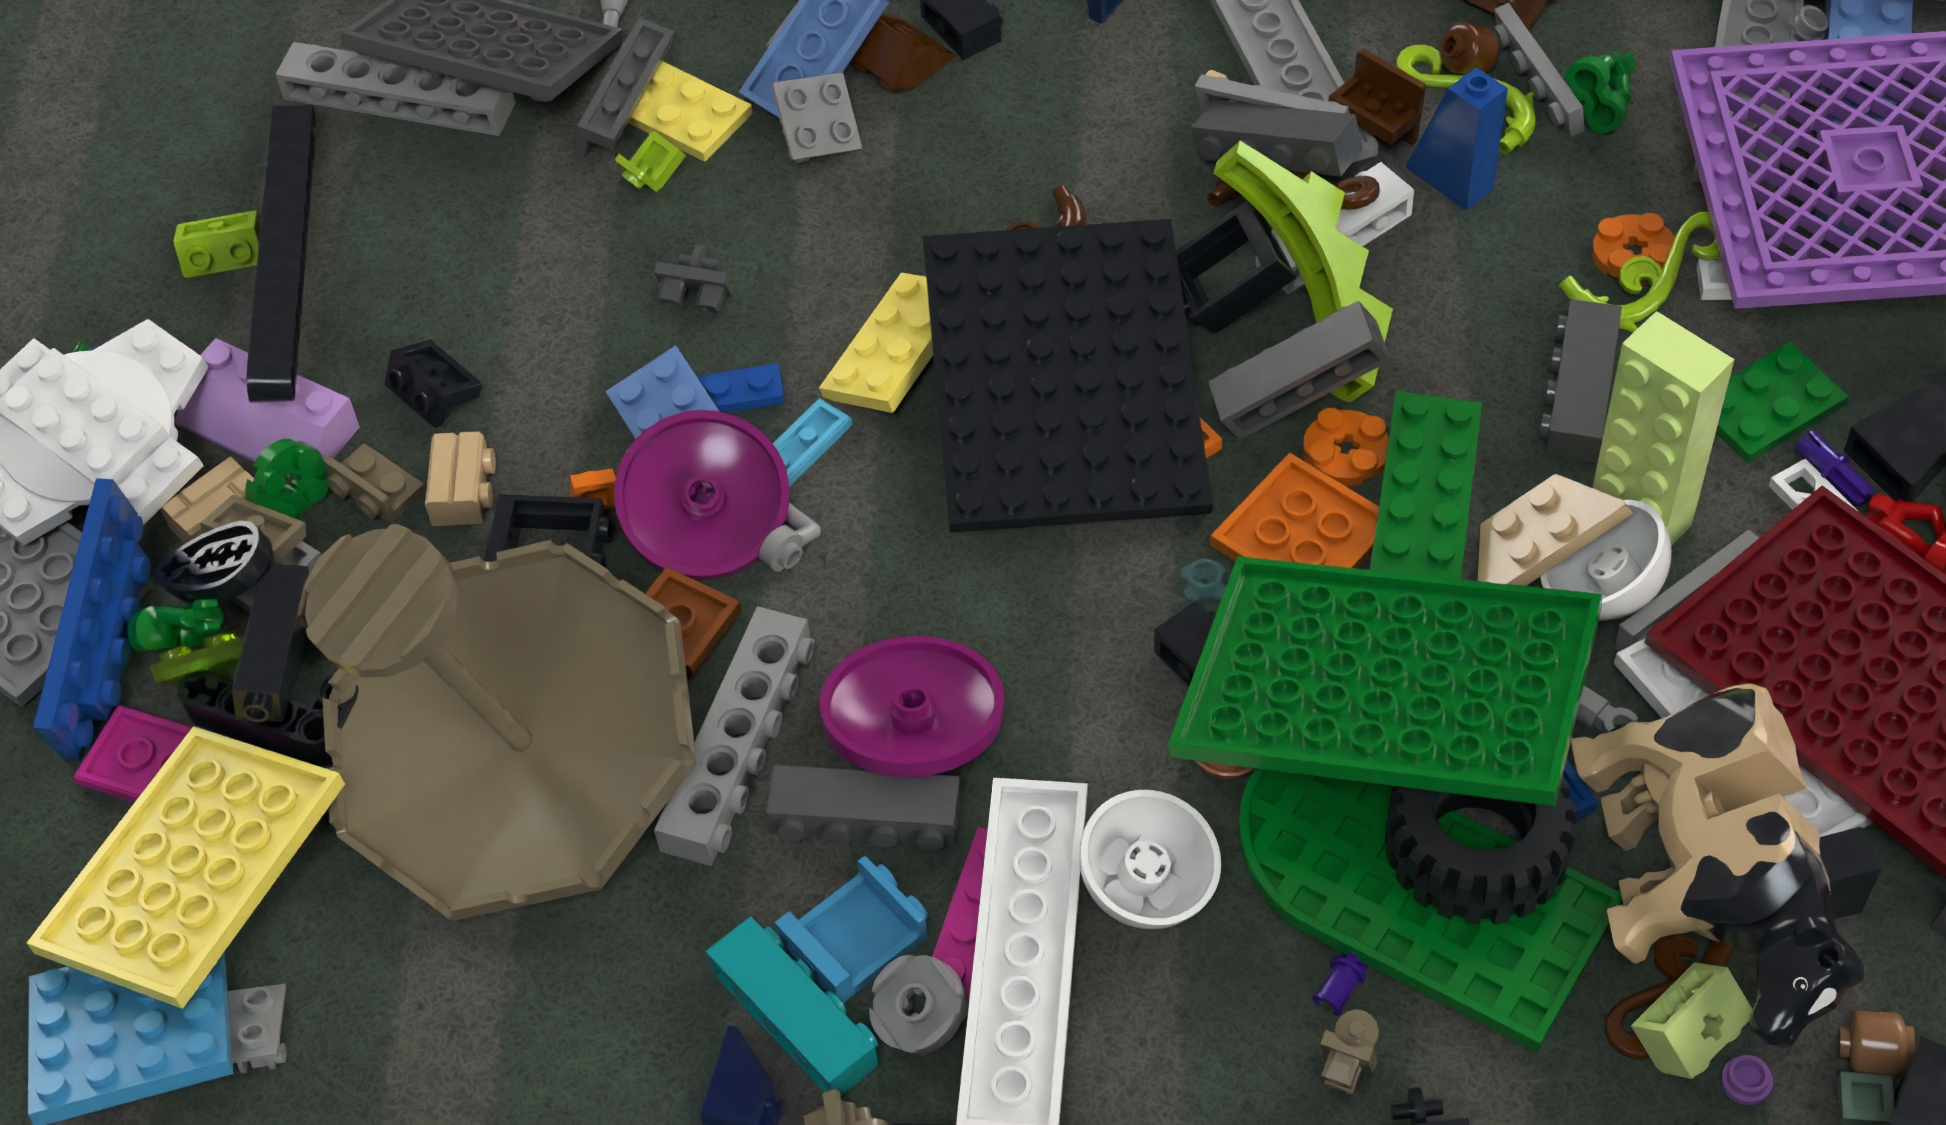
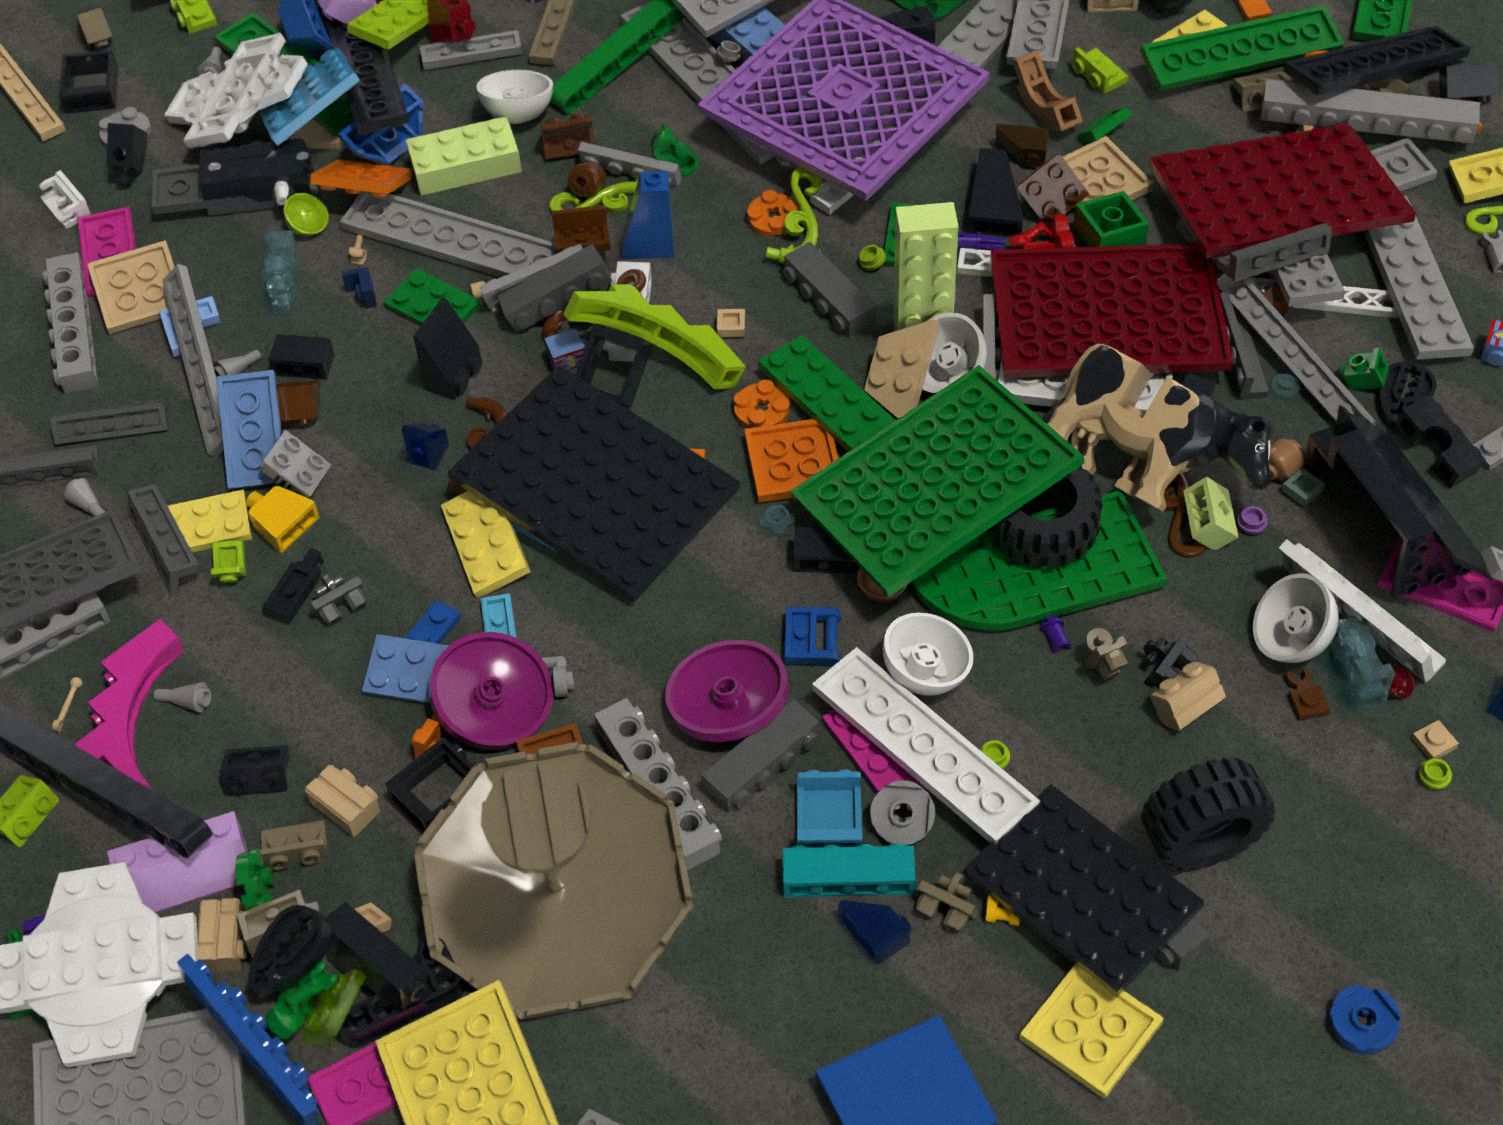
camera: 50 degrees left, 0 degrees up
(341, 192) = (75, 683): none -> tan hinge
(444, 197) = (115, 710): none -> dark pink arch
(466, 264) = (190, 696): none -> light grey cone
(676, 236) = (294, 587): none -> black hinge
(745, 159) = (281, 516): none -> yellow torso
(958, 194) = (425, 444): none -> clear blue slope
(1071, 722) = (801, 635): none -> blue plate
(1082, 113) = (446, 352): none -> black slope
(1097, 1044) = (996, 752): none -> lime plate
(1153, 62) = (421, 293): none -> green plate
(1208, 207) = (565, 349): none -> medium blue brick
(1299, 370) = (710, 384): dark grey brick -> none
(1428, 328) = (731, 322): none -> tan plate

